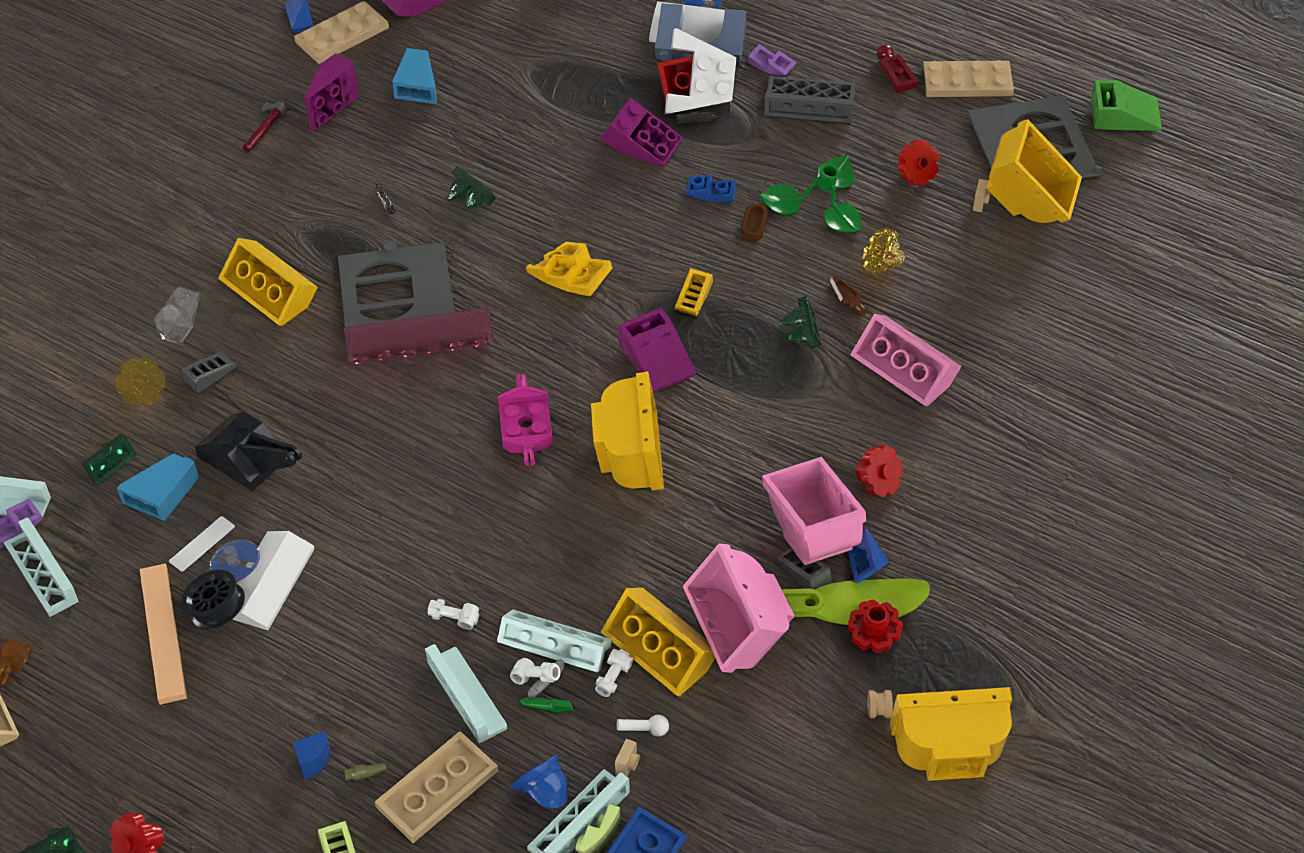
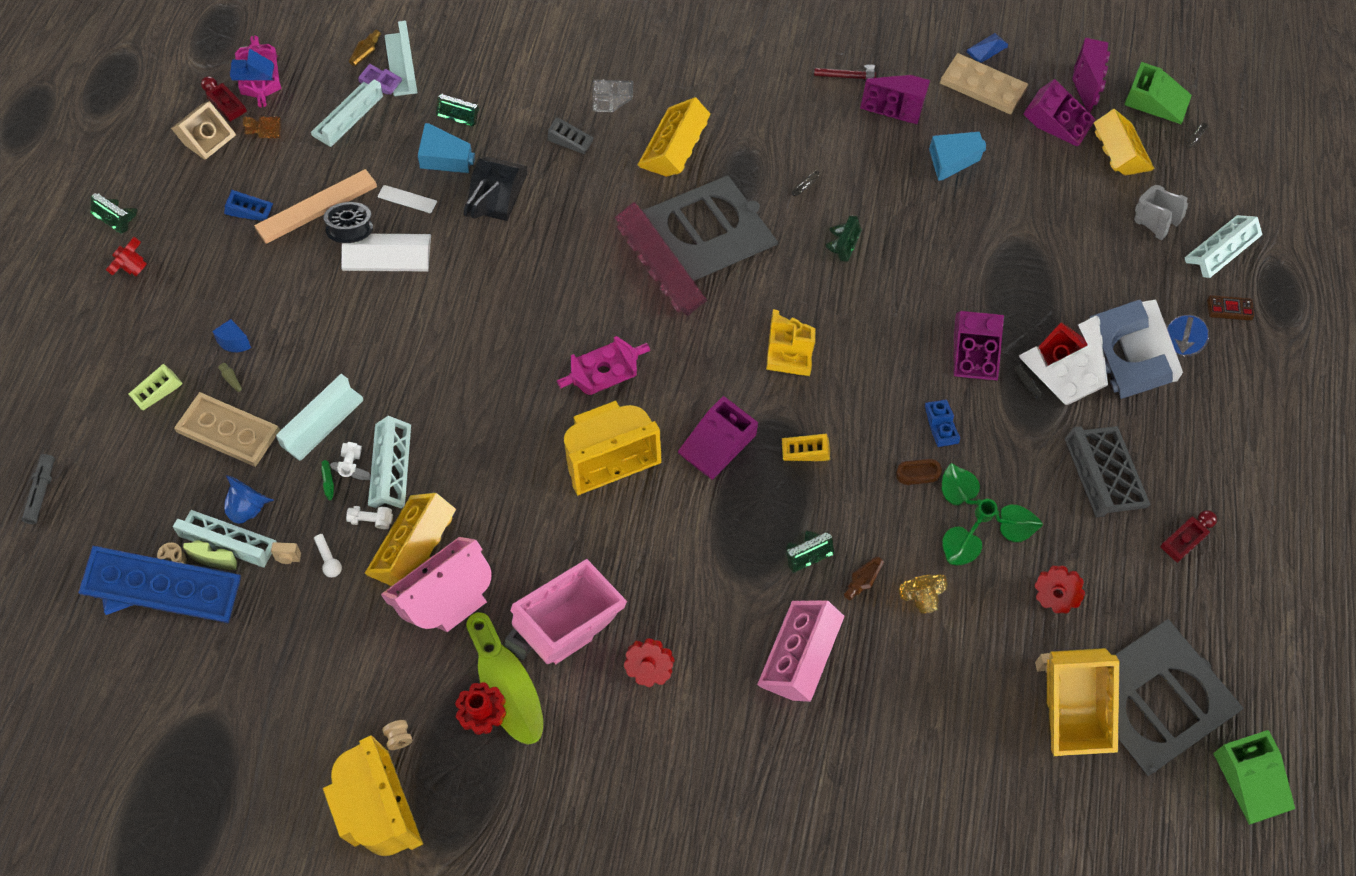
camera: 65 degrees right, 10 degrees up
(114, 718) = (244, 199): none -> blue slope
(140, 381) = (532, 96): clear yellow plant -> none
(237, 557) = (394, 224): clear piece -> none
(466, 617) = (392, 393): white bar -> none
(774, 64) = (1138, 421): medium lavender slope -> none
(866, 557) = (555, 681): blue slope -> none
(967, 78) = (1218, 608): tan plate -> none

